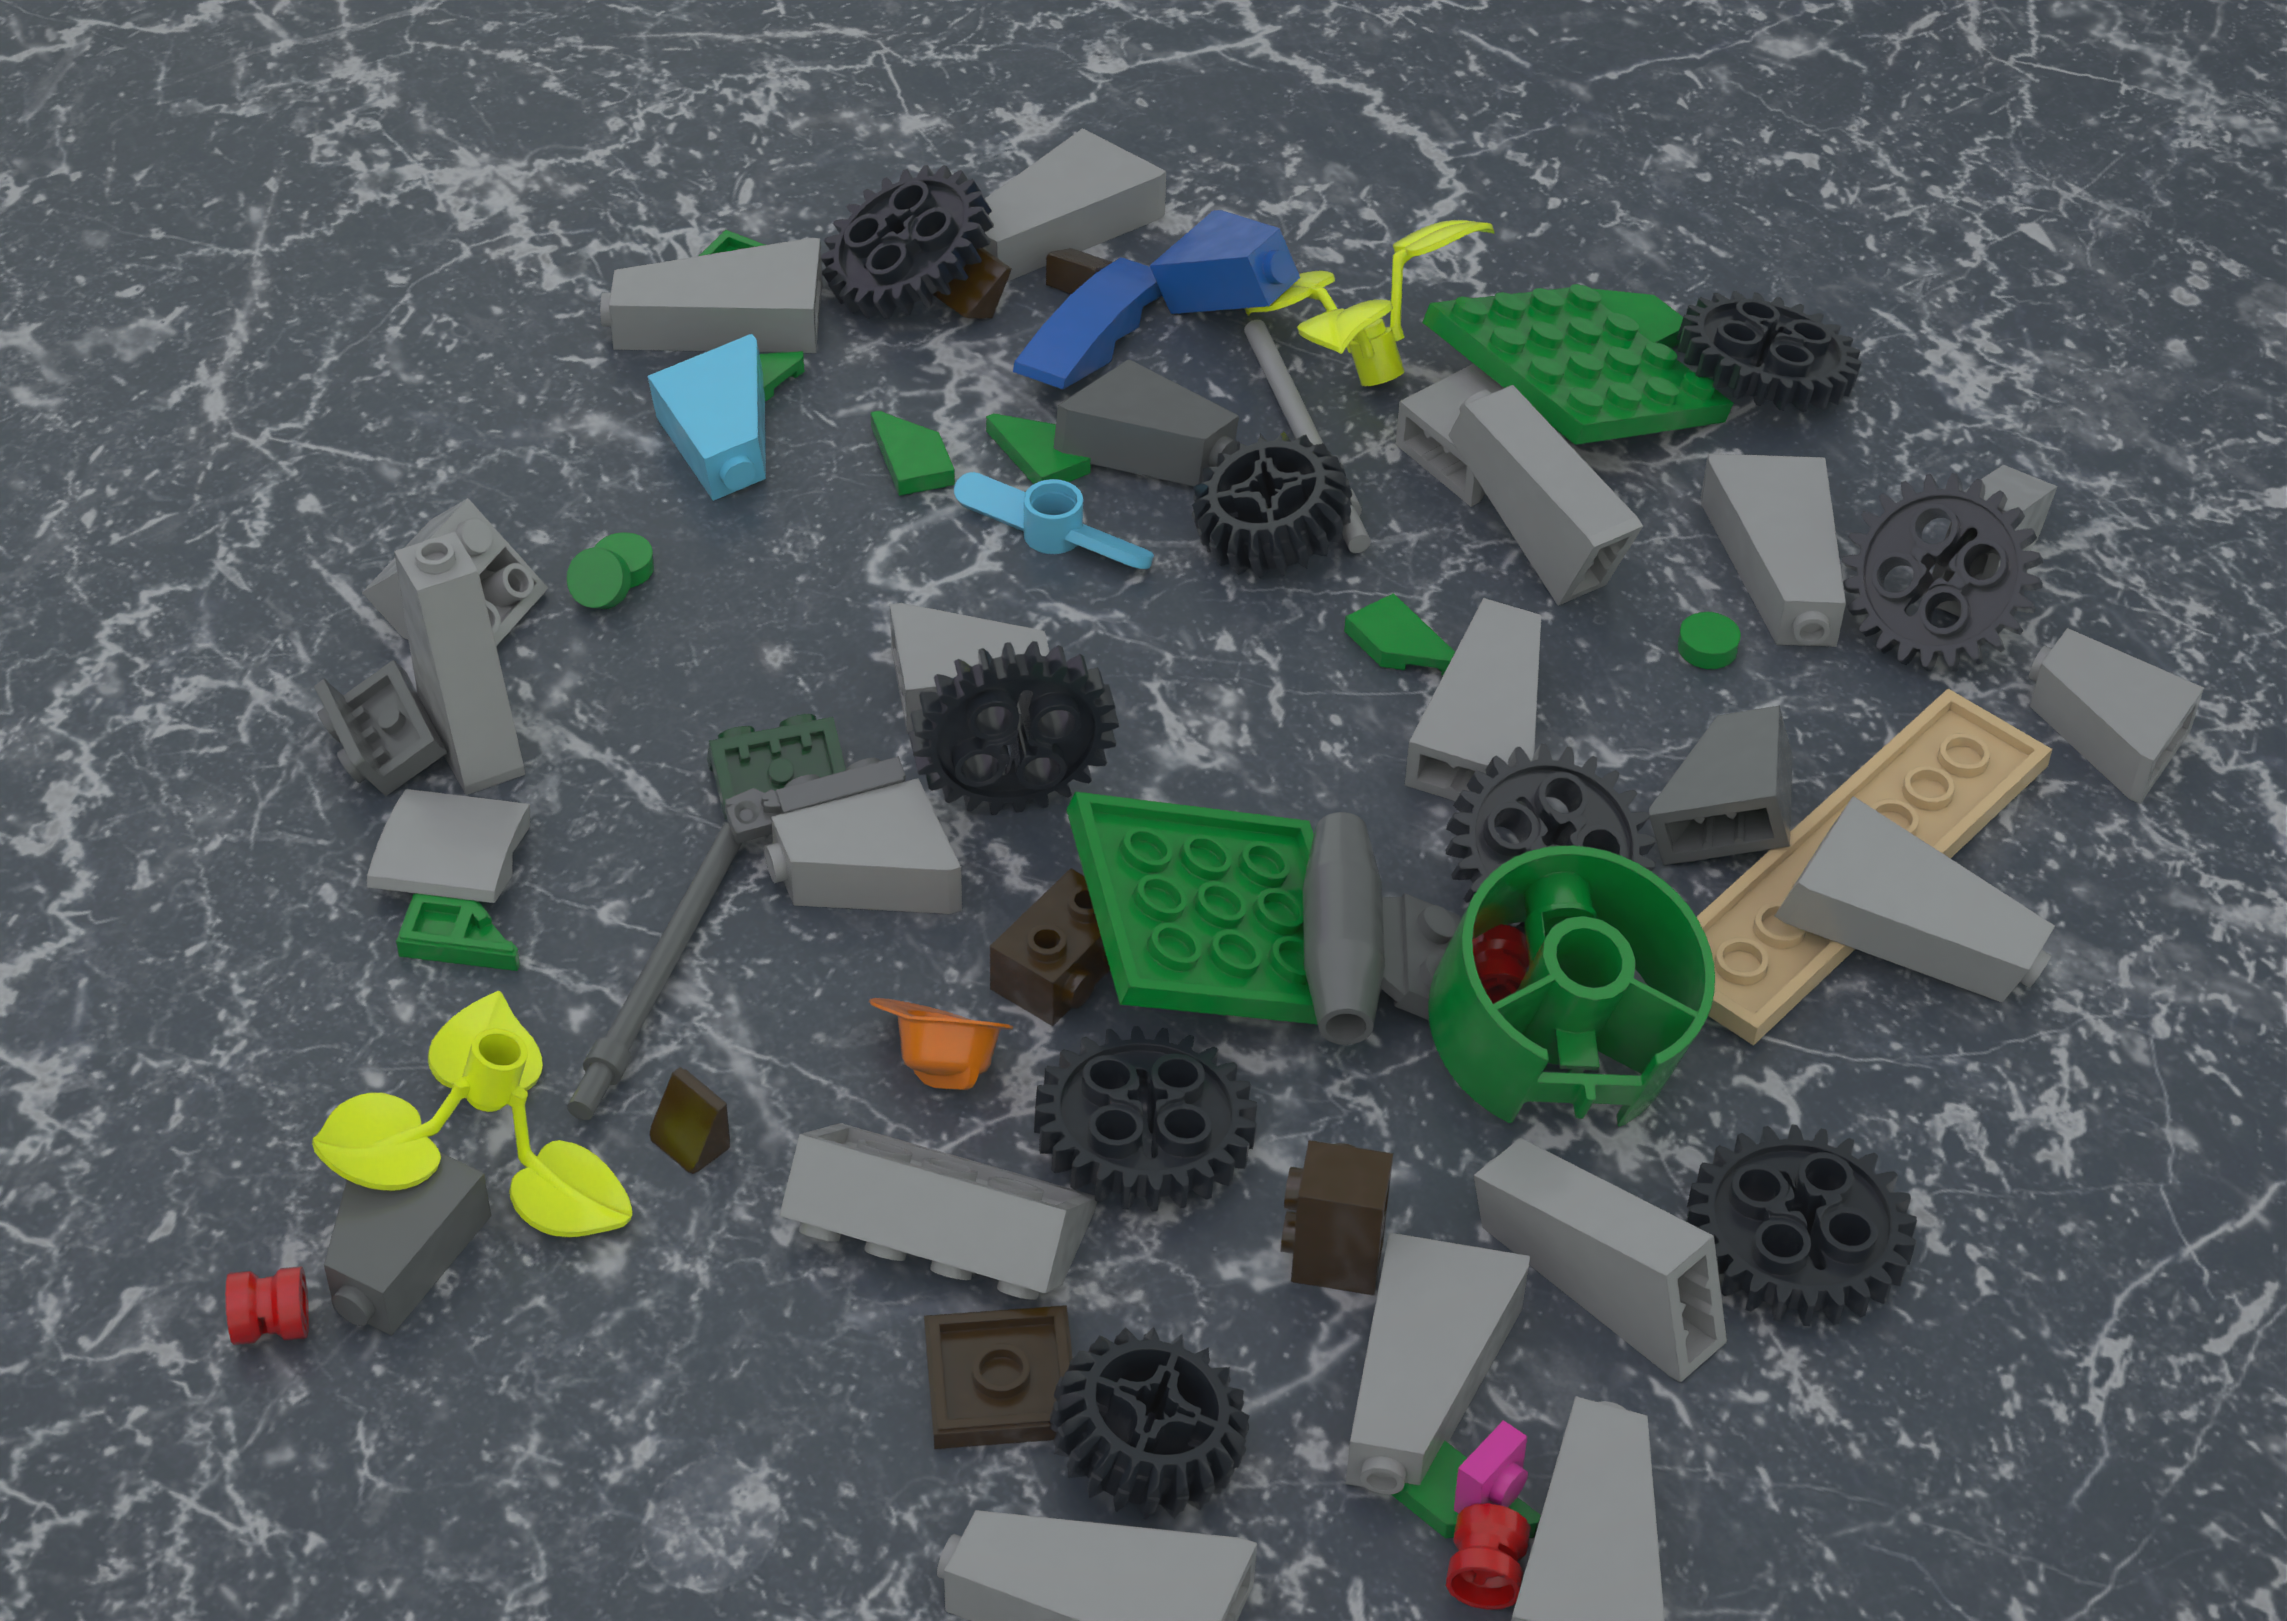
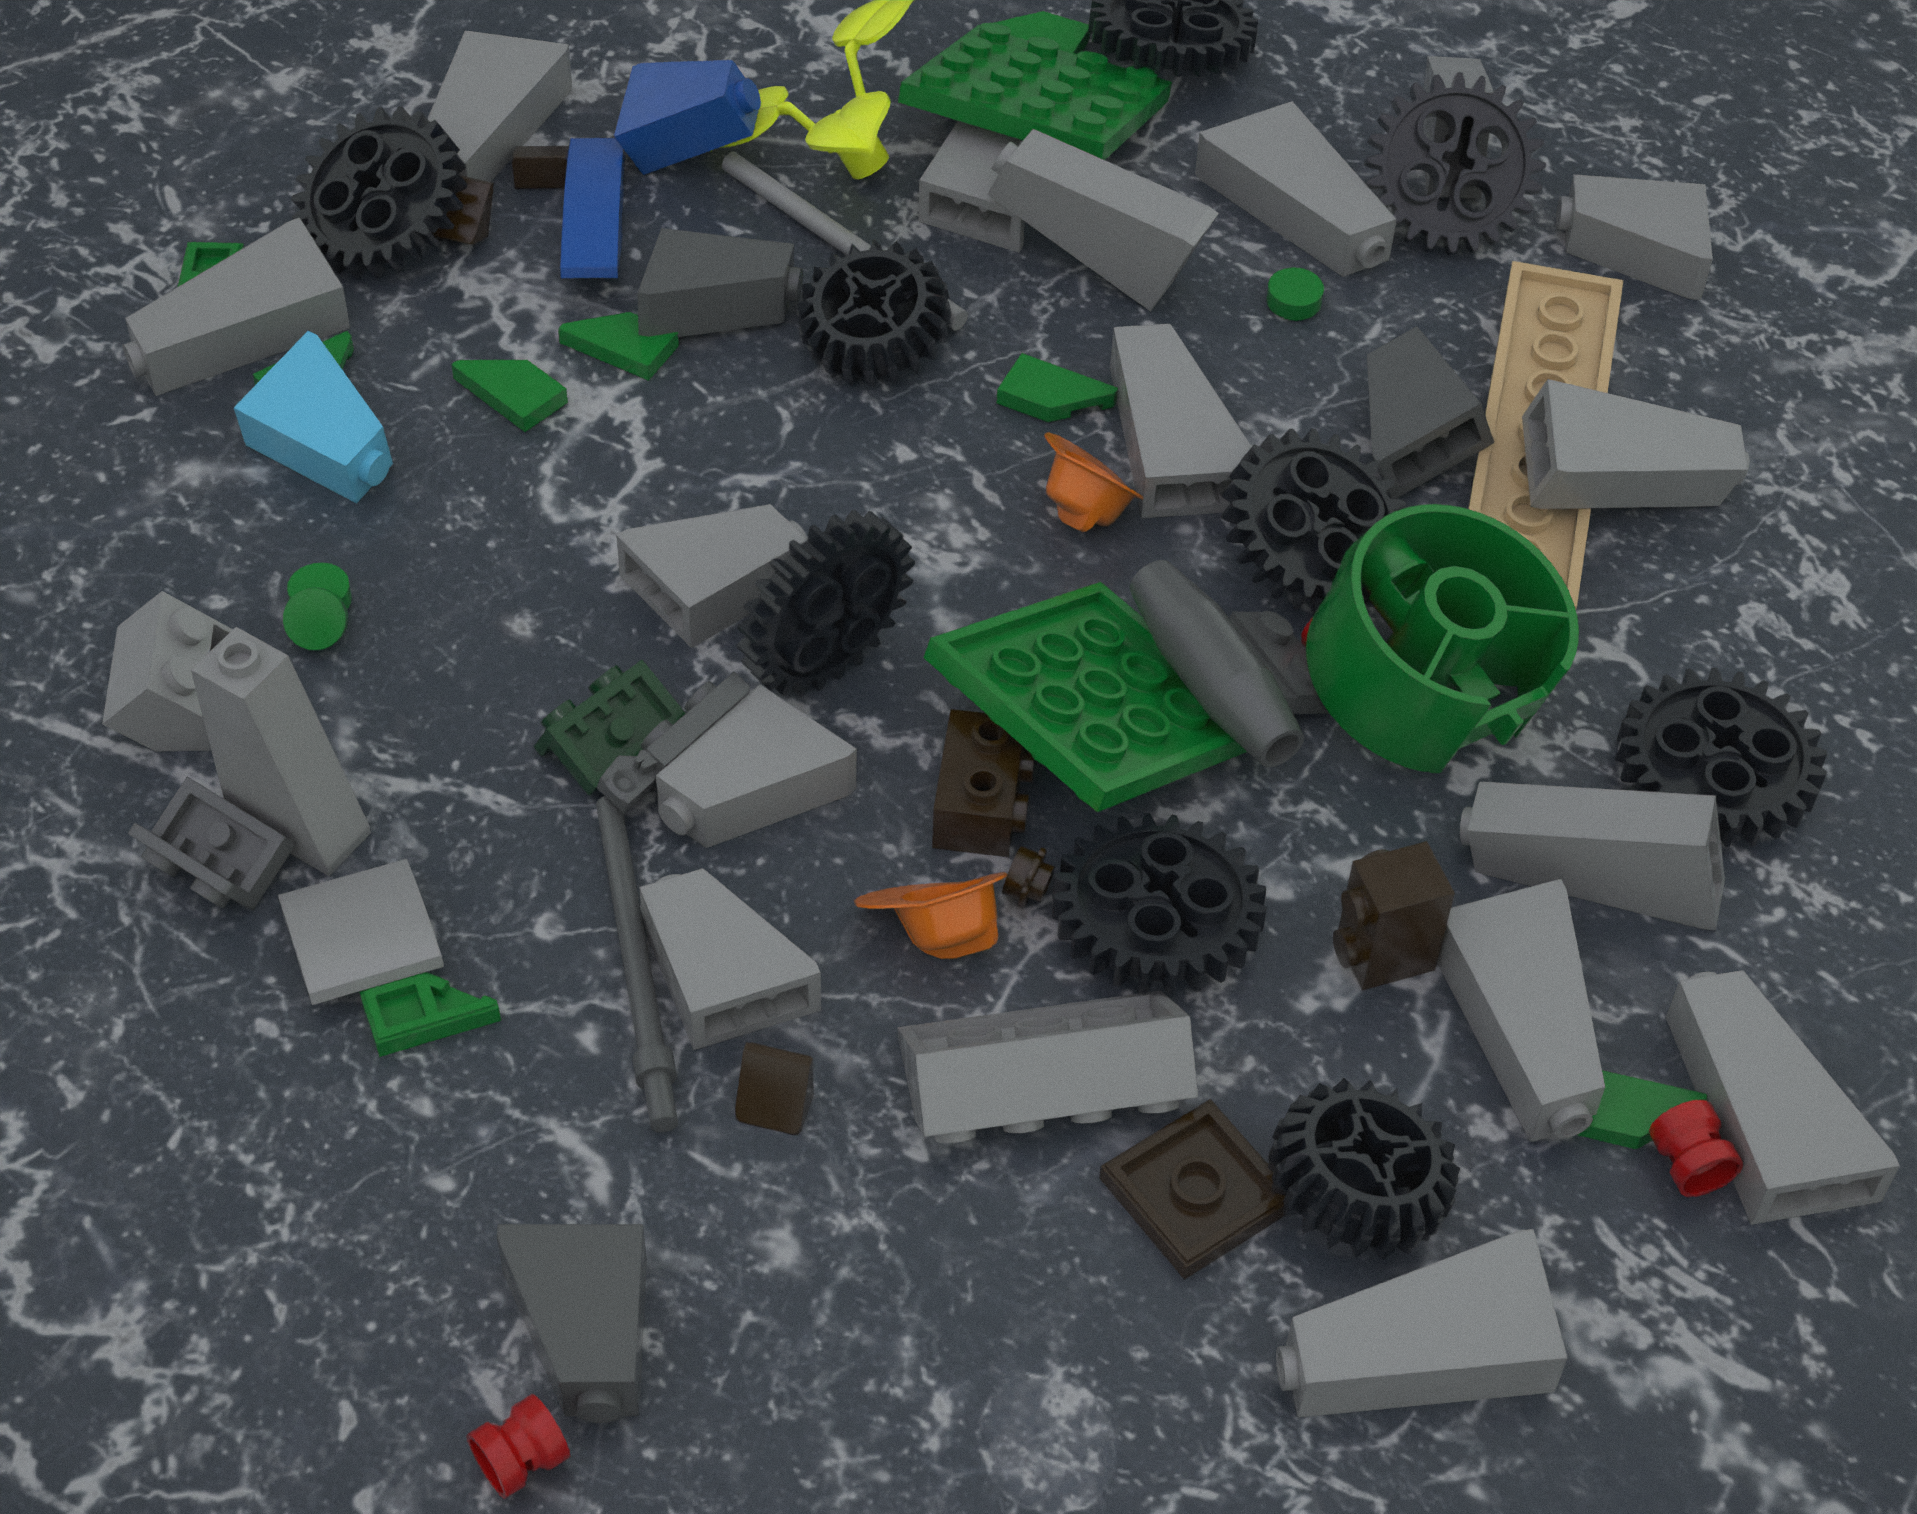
camera: 30 degrees left, 5 degrees up
(492, 1064) = (544, 1248): neon yellow plant -> none
(721, 999) = (724, 960): none -> light grey slope
(1043, 1042) = (1028, 876): none -> dark brown plate
(1048, 515) = (679, 401): medium azure piece -> none
(1360, 727) = (1085, 487): none -> orange piece
(1493, 1470) = (1662, 1076): dark pink plate -> none

